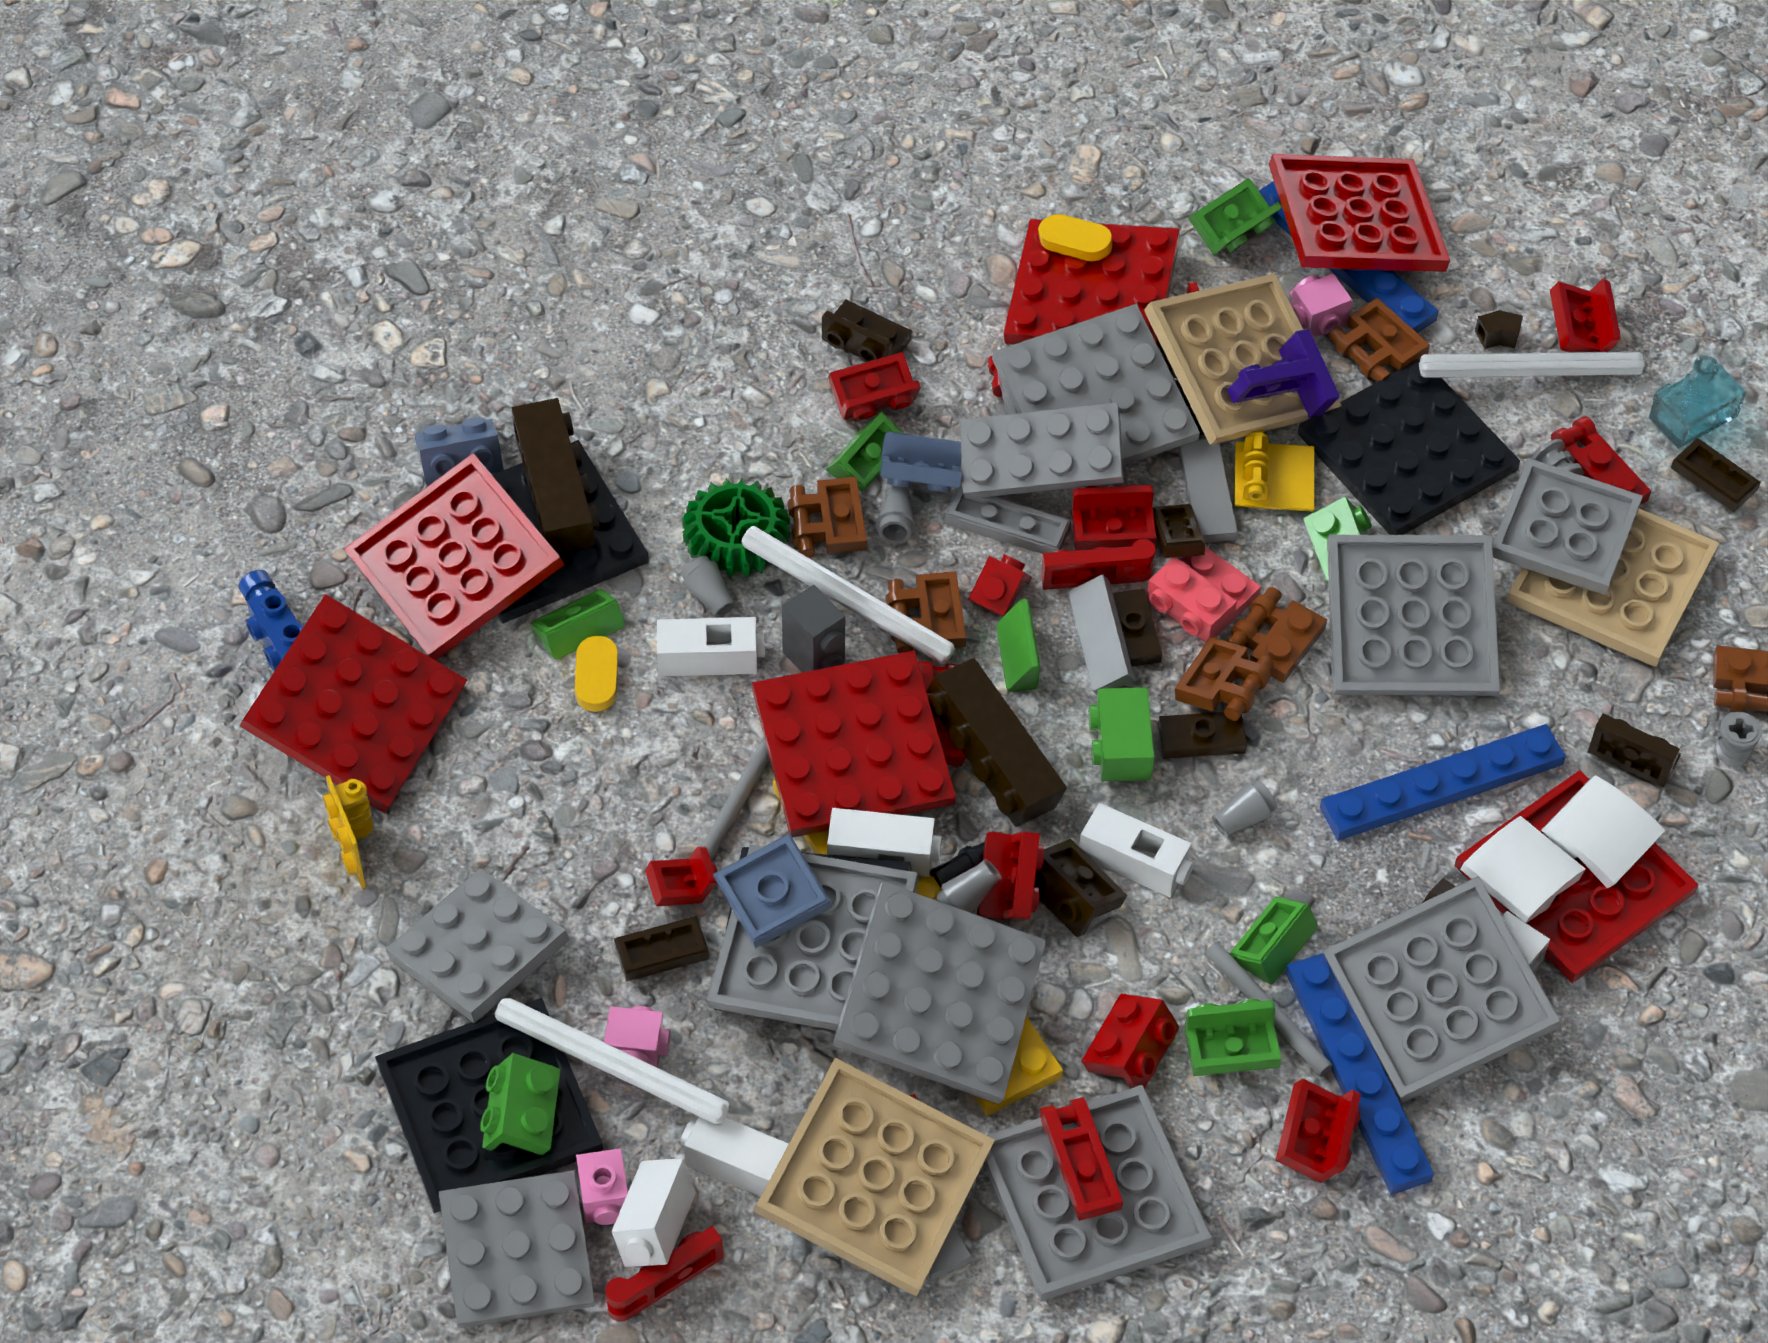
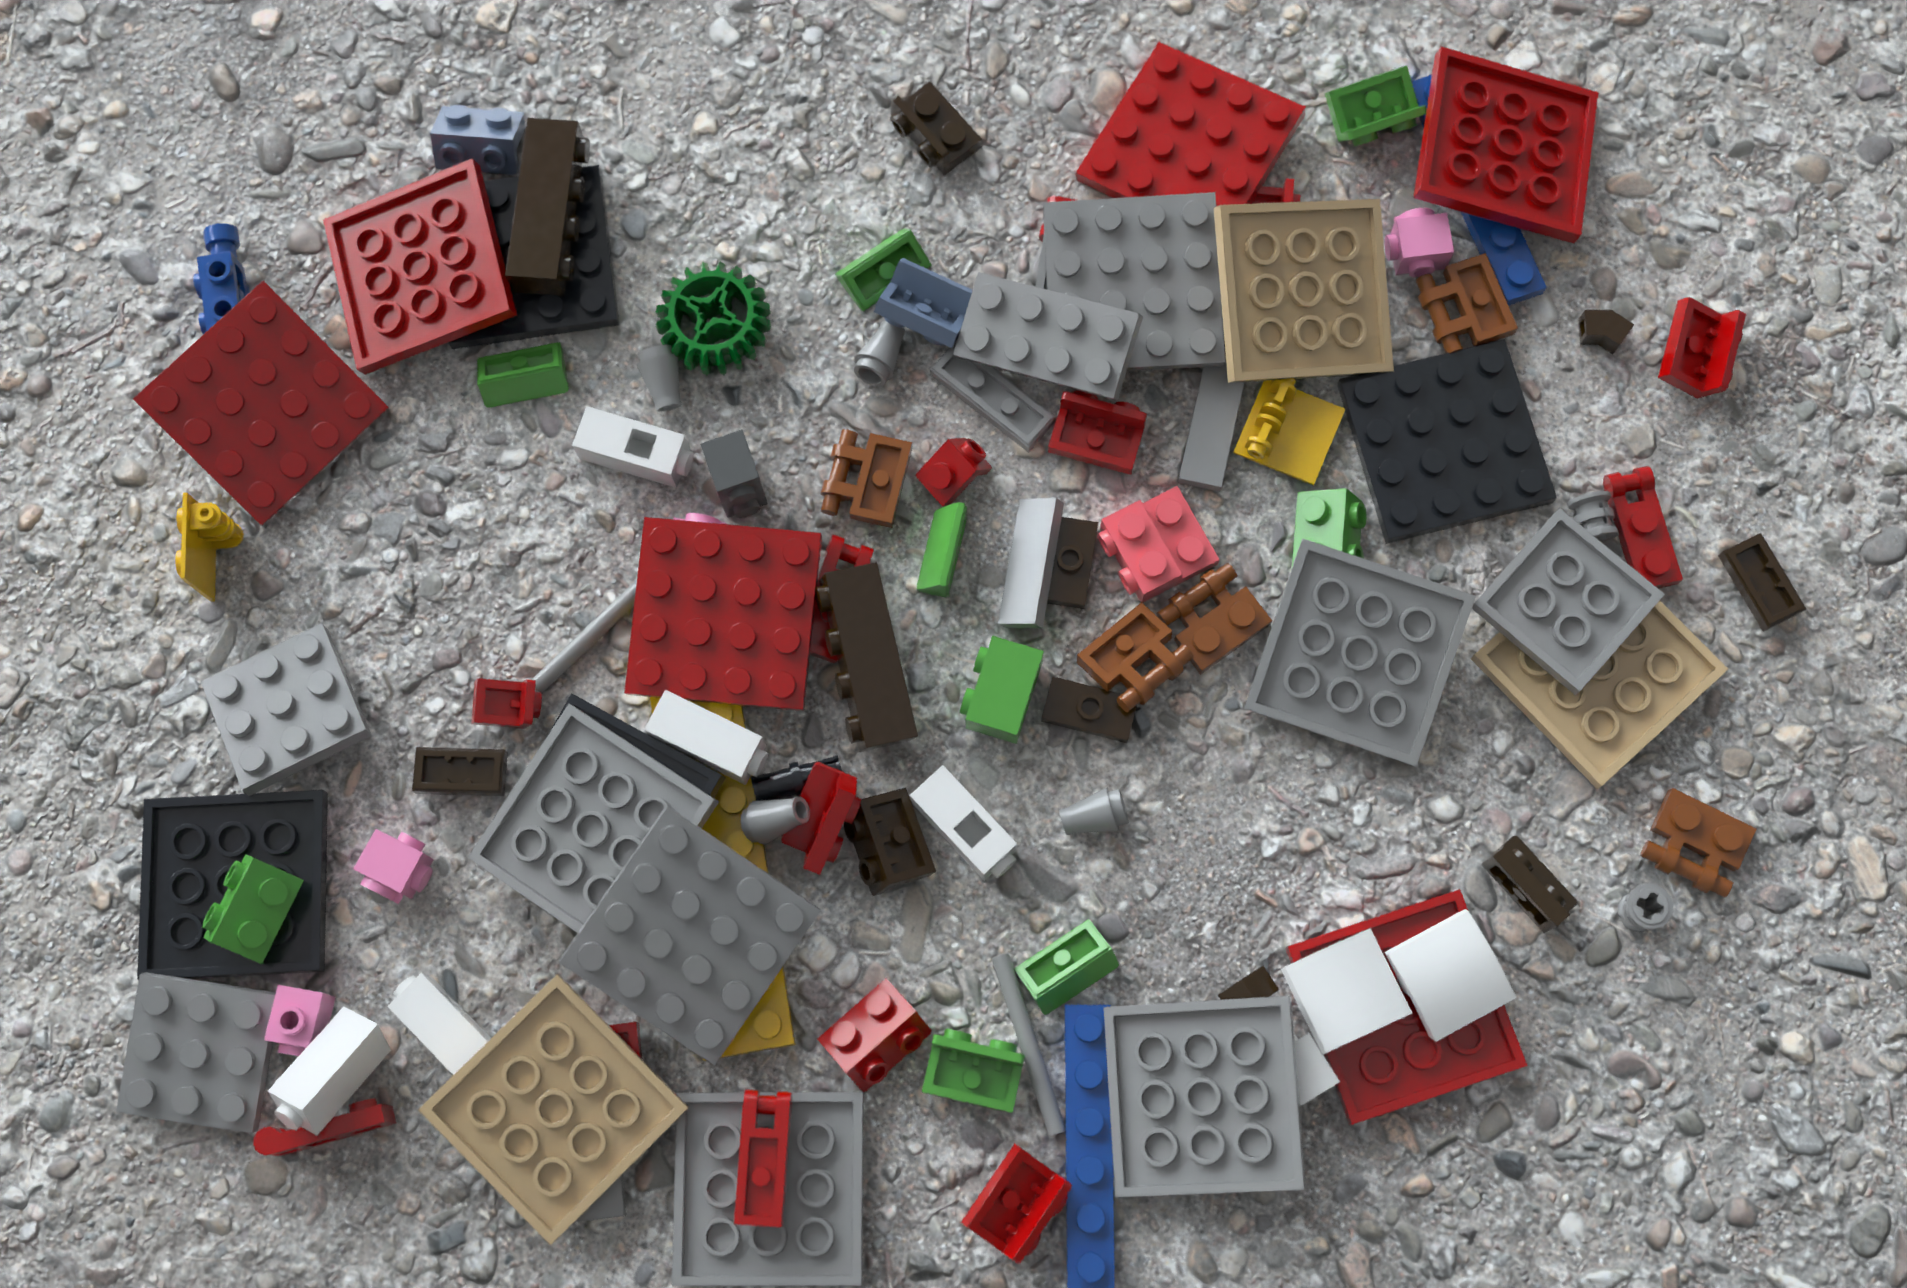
camera: 25 degrees right, 20 degrees up
(596, 673) = (517, 438): yellow tile -> none
(612, 1060) = (353, 892): white axle -> none
(772, 890) = (564, 769): sand blue plate -> none
(840, 514) = (823, 338): dark orange plate -> none
(848, 595) = (786, 440): white axle -> none
(873, 386) = (915, 195): red bracket -> none
(1075, 237) = (1190, 85): yellow tile -> none
(1117, 564) = (1061, 482): red plate -> none
(1178, 531) = (1158, 468): dark brown plate -> none
(1299, 370) = (1359, 327): dark purple bracket -> none
(1442, 782) = (1315, 847): blue plate -> none
(1531, 364) = (1618, 387): white axle -> none
(1697, 402) = (1778, 490): clear light blue brick -> none

